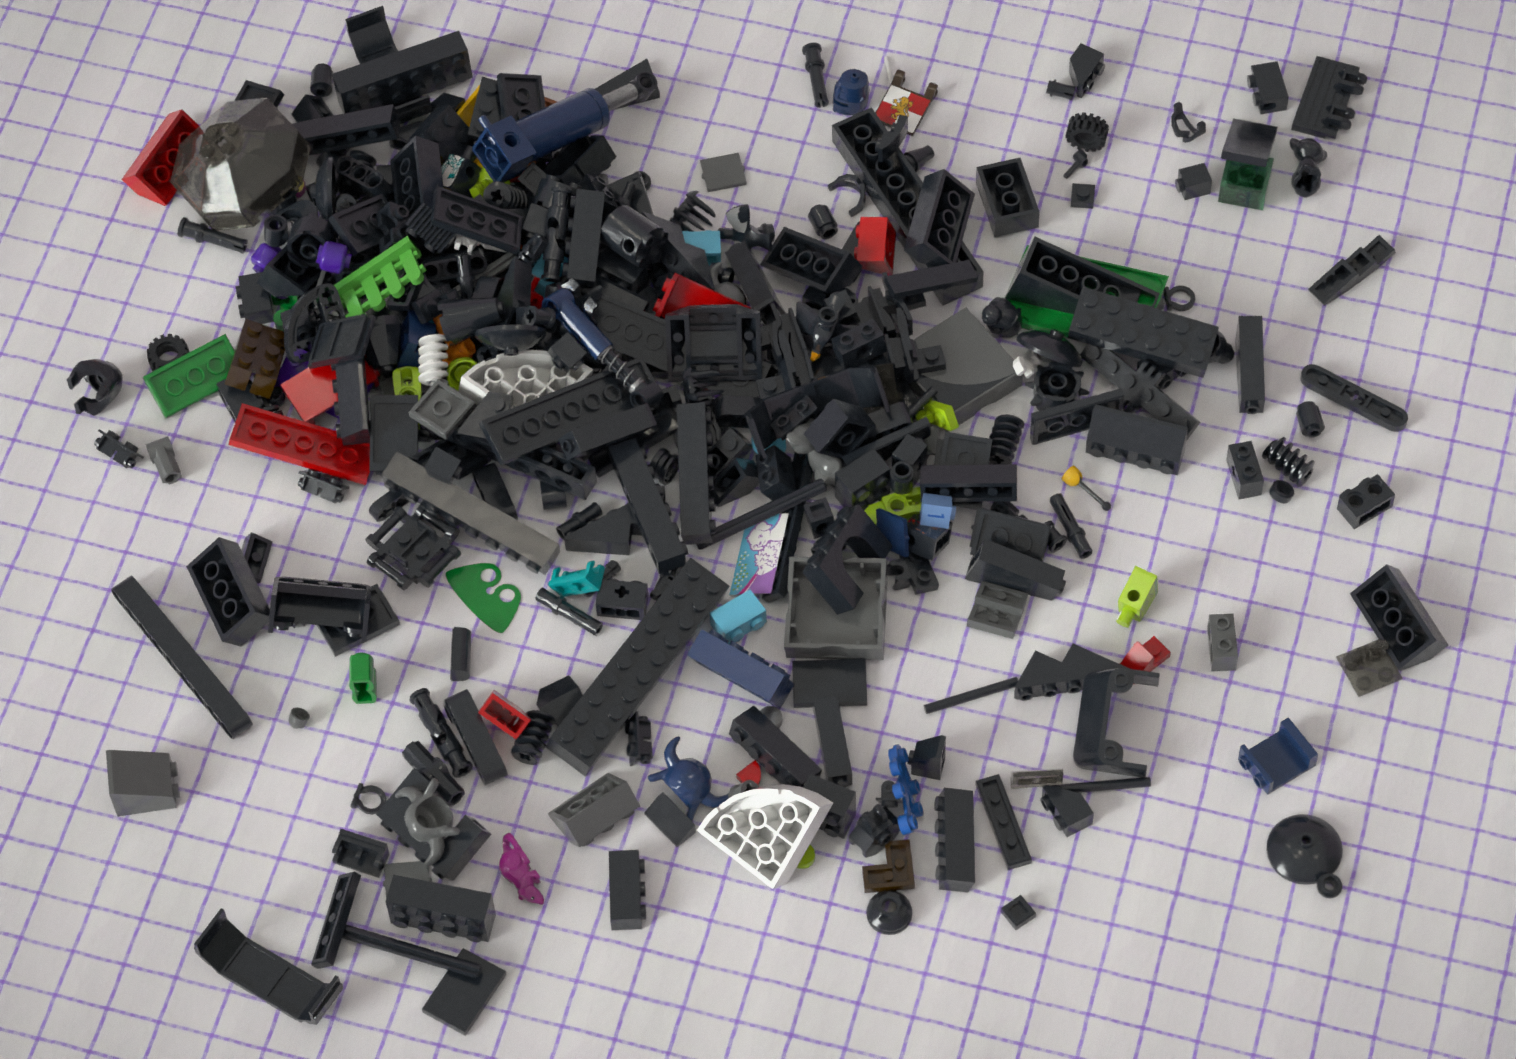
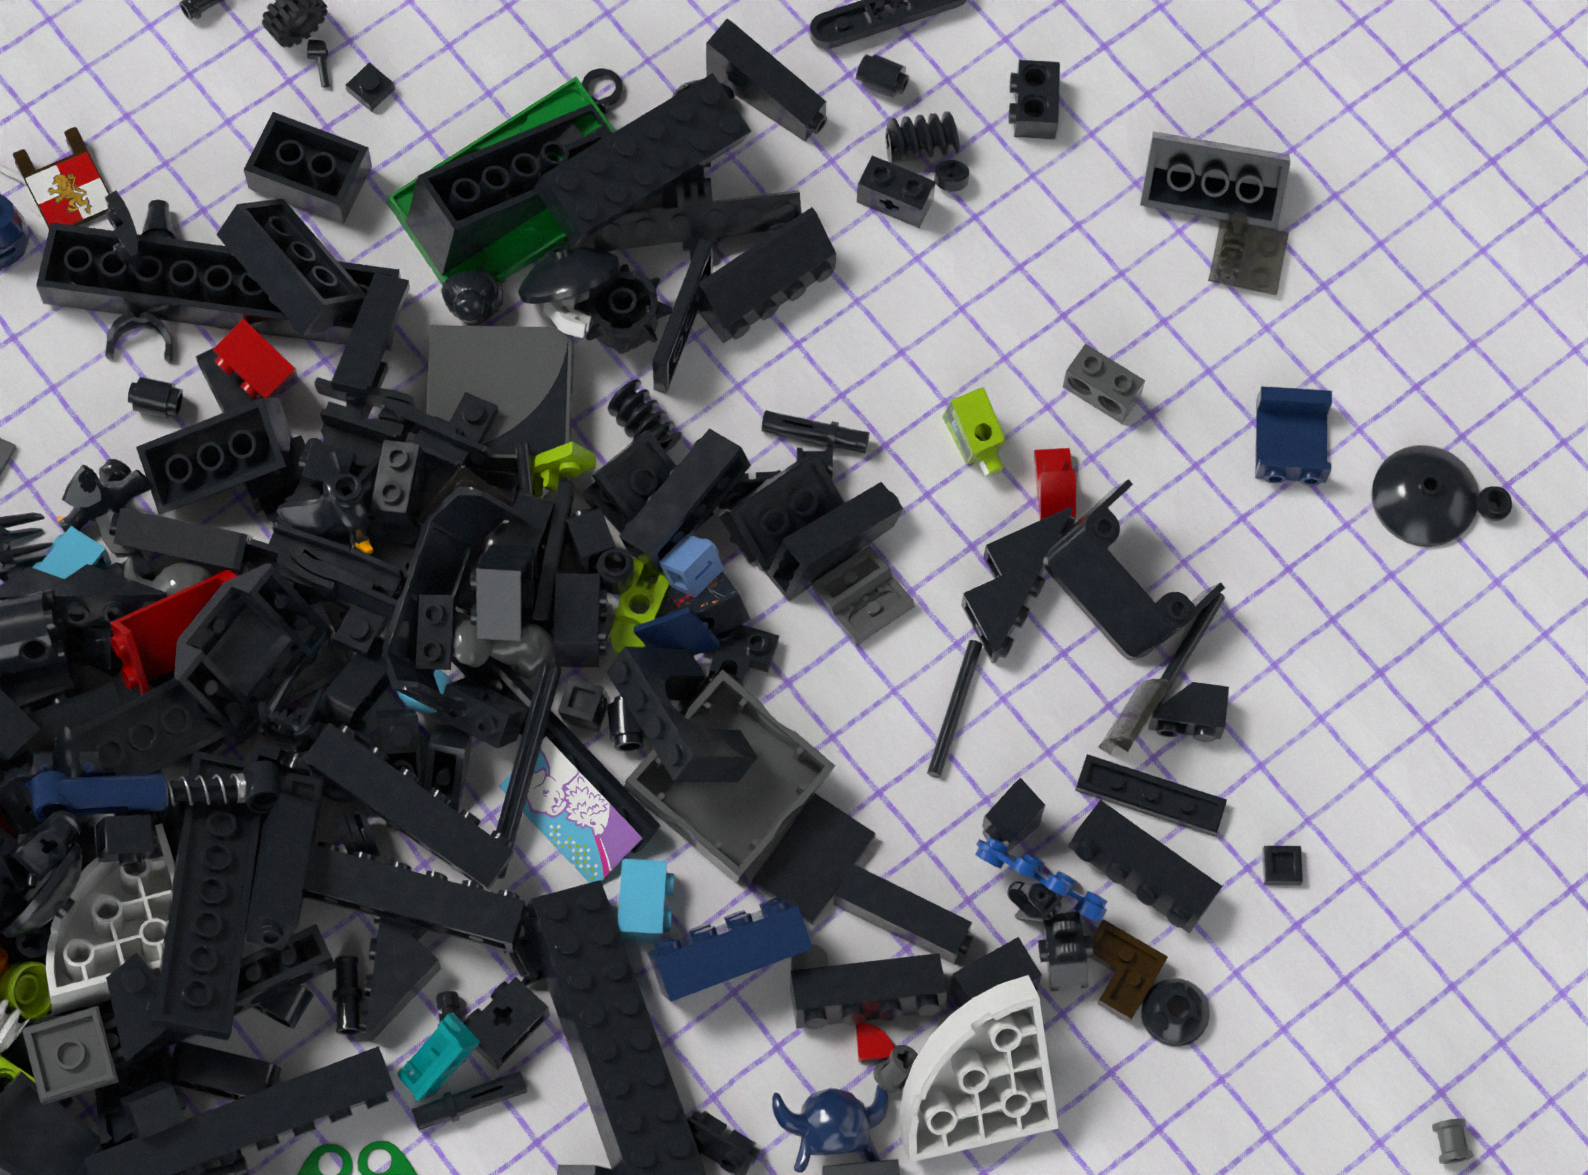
camera: 60 degrees left, 10 degrees up
(1074, 477) = (753, 380): hinge -> none

